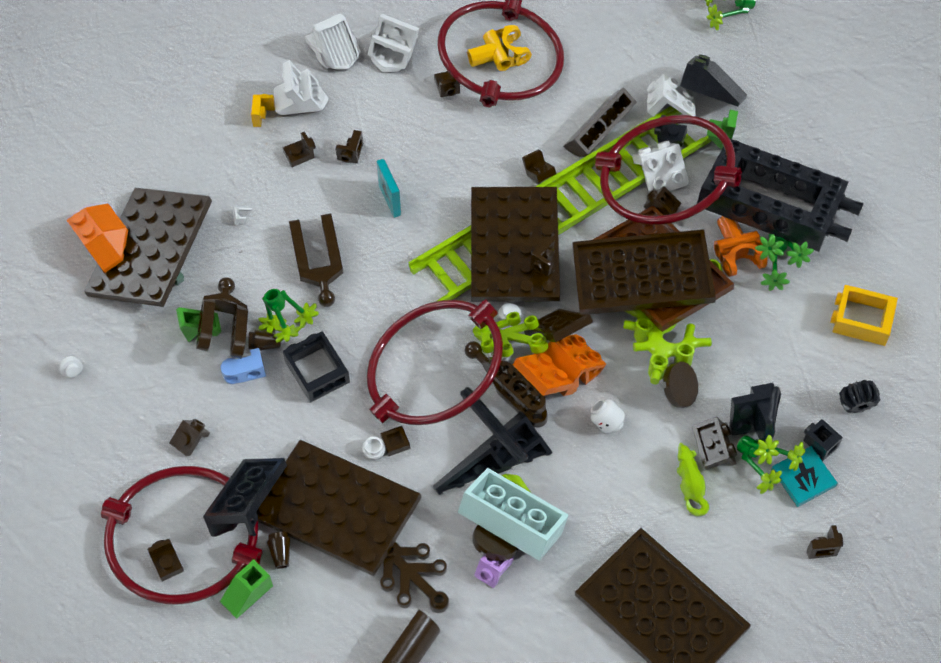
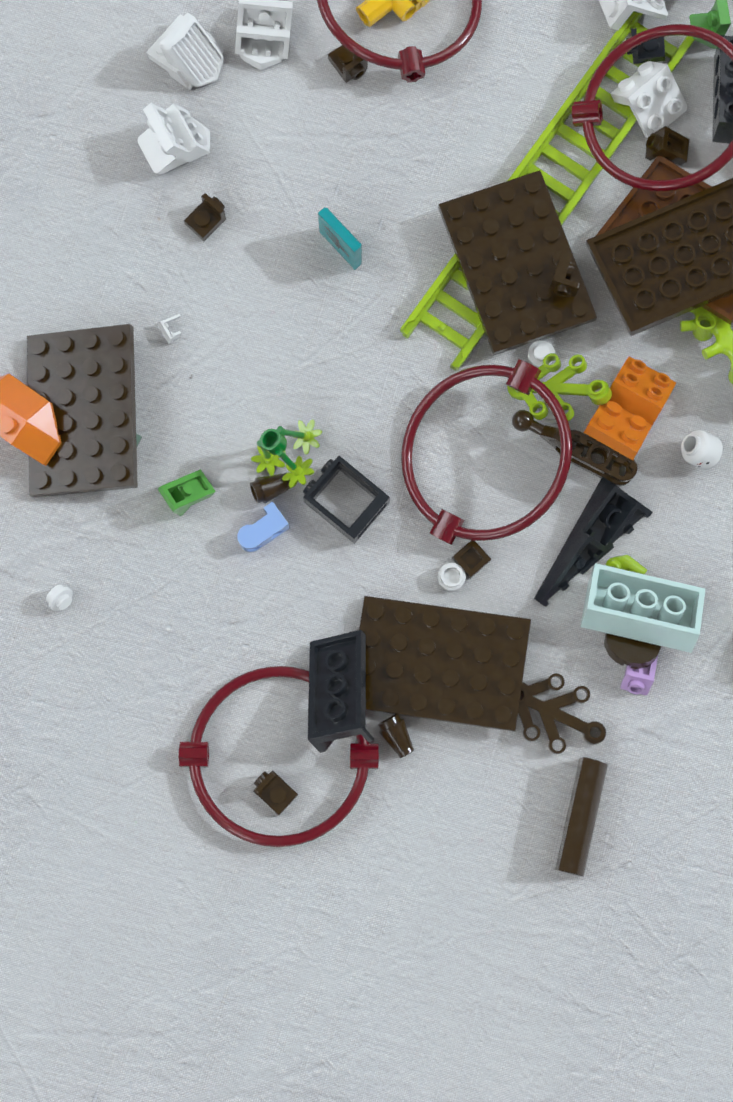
camera: 20 degrees left, 20 degrees up
(188, 436) = (236, 635): dark brown bracket -> none
(228, 304) = (211, 455): dark brown piece -> none
(246, 589) = (381, 797): bright green slope -> none
(260, 105) = (131, 169): yellow bracket -> none
(323, 275) = (306, 379): dark brown piece -> none
(352, 150) = (271, 199): dark brown bracket -> none
(496, 428) = (584, 508): black axle -> none
(537, 167) = (505, 148): dark brown bracket -> none
(560, 324) = (613, 356): dark brown tile -> none
(600, 123) = (556, 59): dark brown brick -> none

